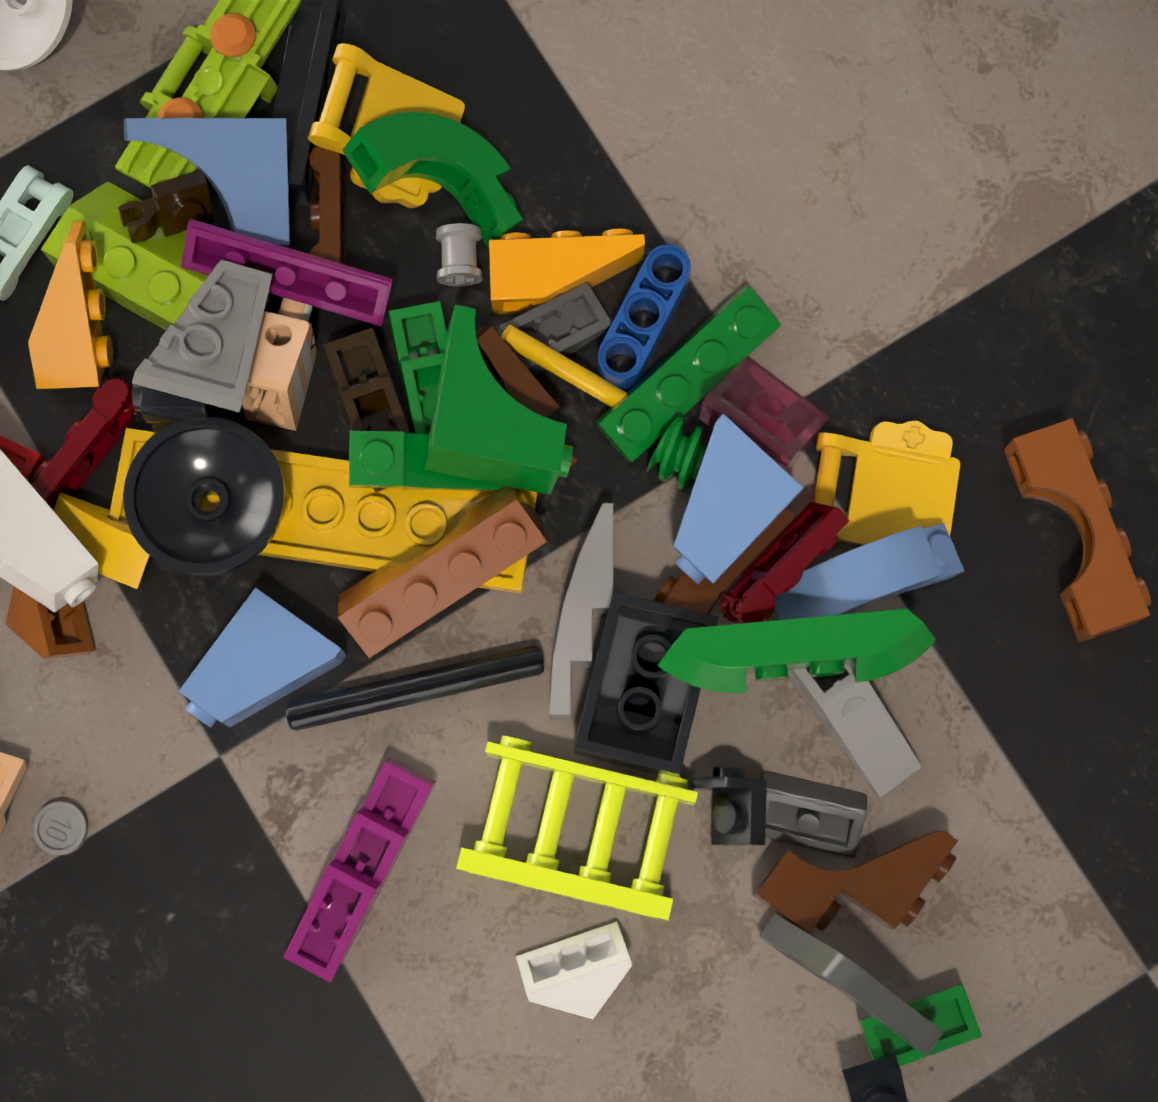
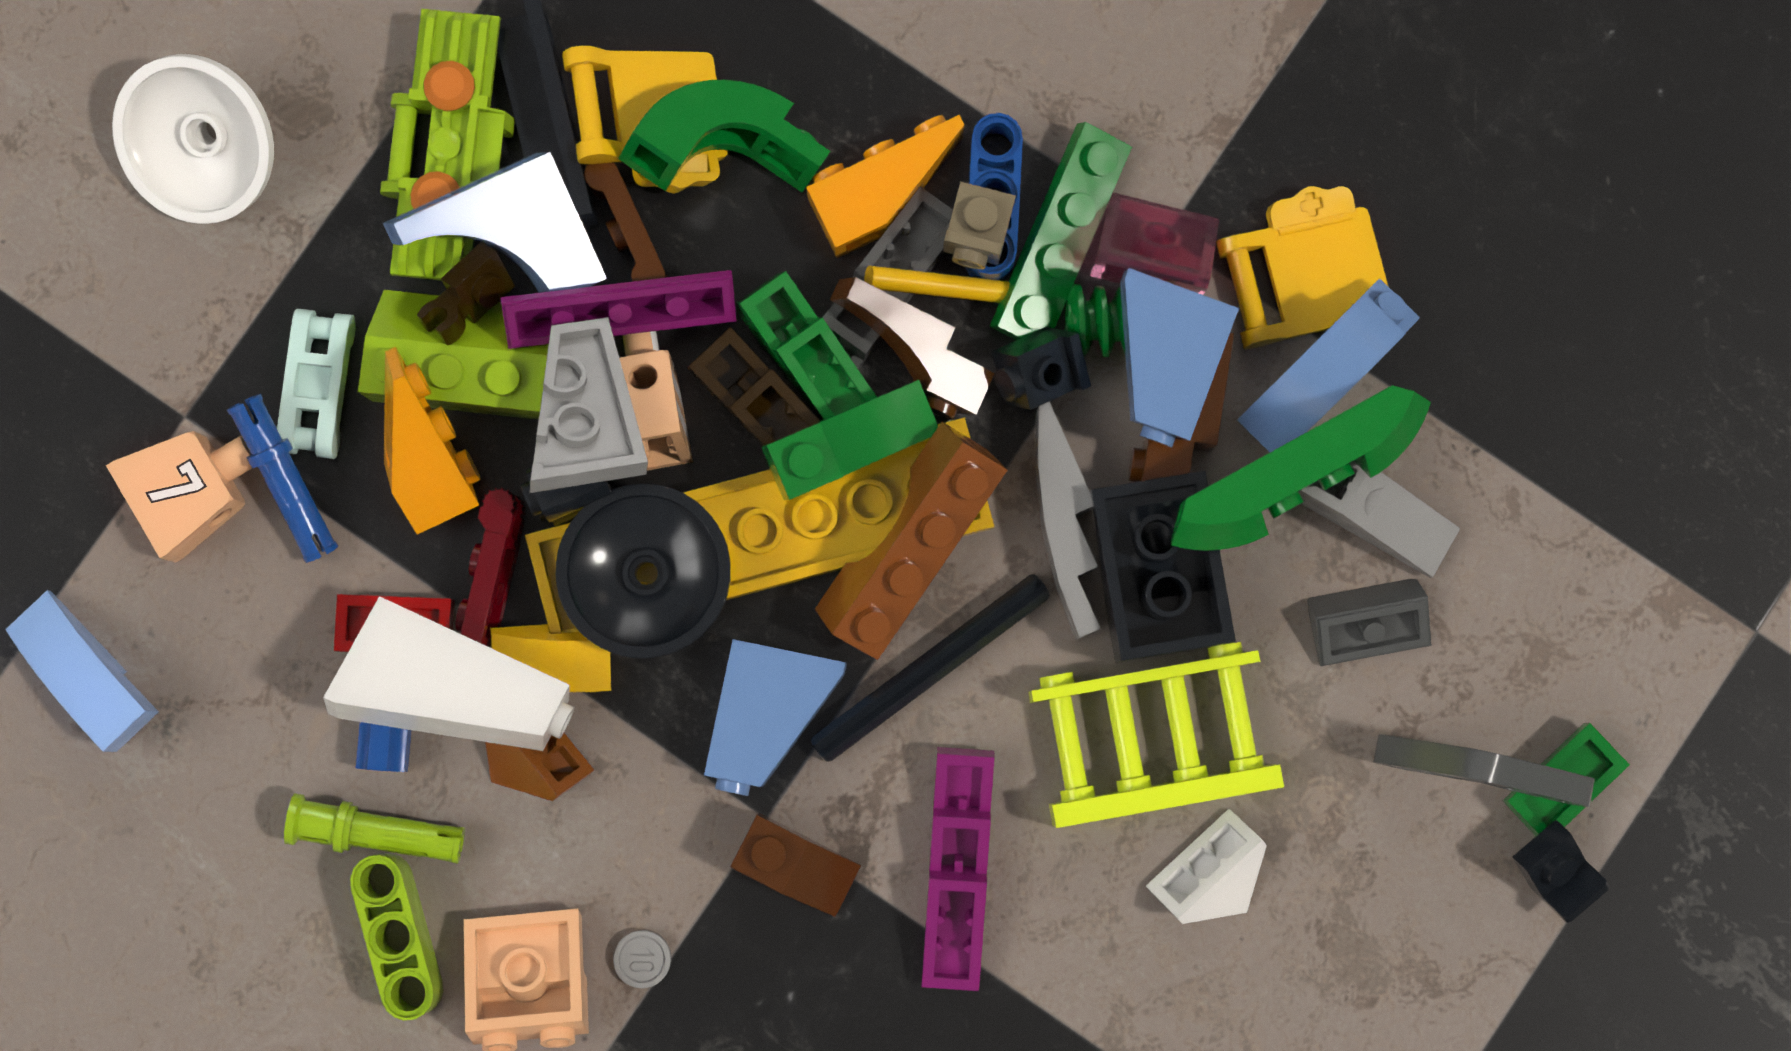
camera: 25 degrees left, 5 degrees up
(222, 803) = (795, 865): none -> reddish brown slope
(459, 254) = (778, 213): light grey bush -> none
(482, 429) = (891, 384): green arch -> none
(617, 331) = (978, 226): none -> dark tan bracket
(636, 470) = (1040, 368): none -> black brick
(736, 807) = (1299, 648): black bracket -> none
(782, 563) = (1245, 390): dark red hinge -> none
(882, 887) = (1473, 662): reddish brown arch -> none
(1057, 469) = (1562, 274): dark orange arch -> none

